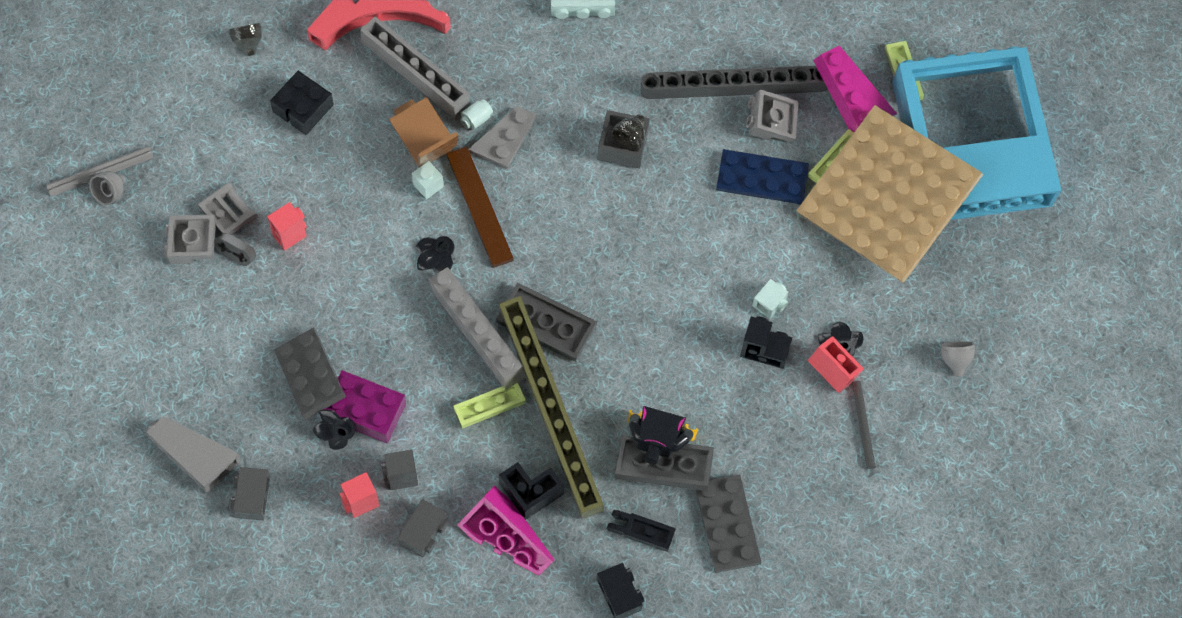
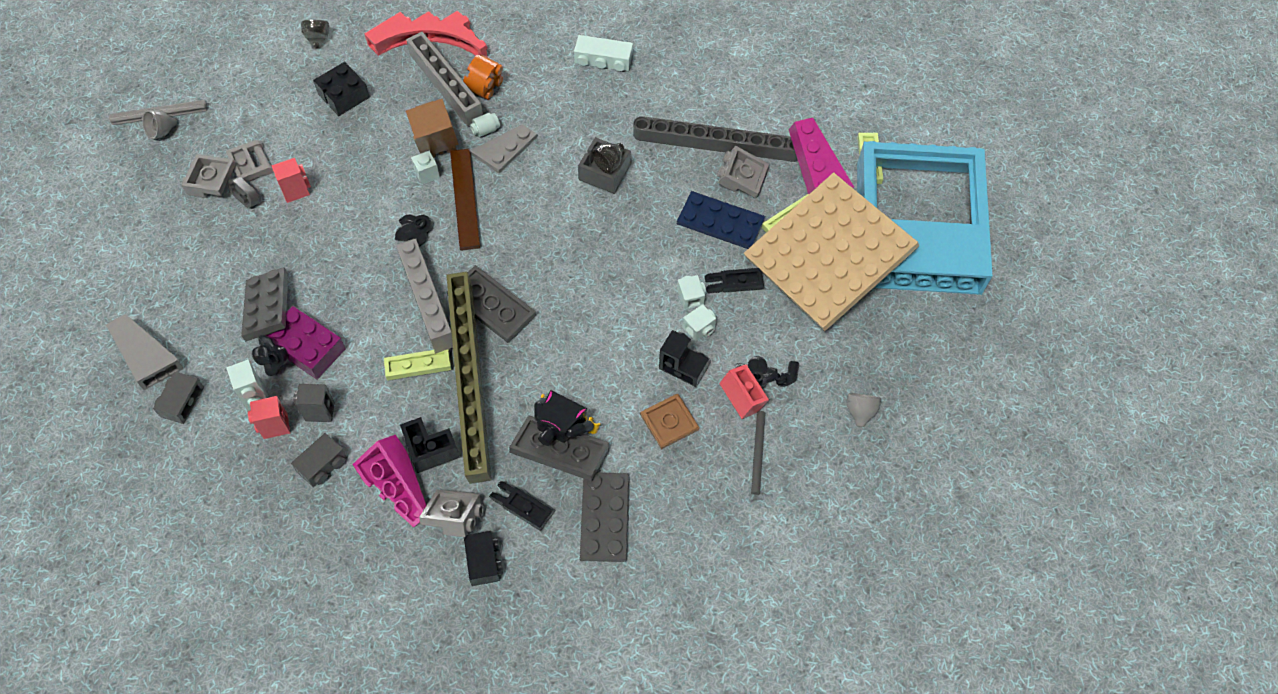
camera: 15 degrees right, 5 degrees down
(331, 468) = (246, 383): none -> light aqua brick
(459, 57) = (483, 76): none -> orange brick
(578, 551) = (452, 512): none -> light grey plate
(753, 266) = (691, 291): none -> light aqua brick
(766, 410) = (669, 421): none -> medium nougat tile
(796, 243) = (735, 280): none -> black hinge
(876, 337) = (790, 376): none -> black arm

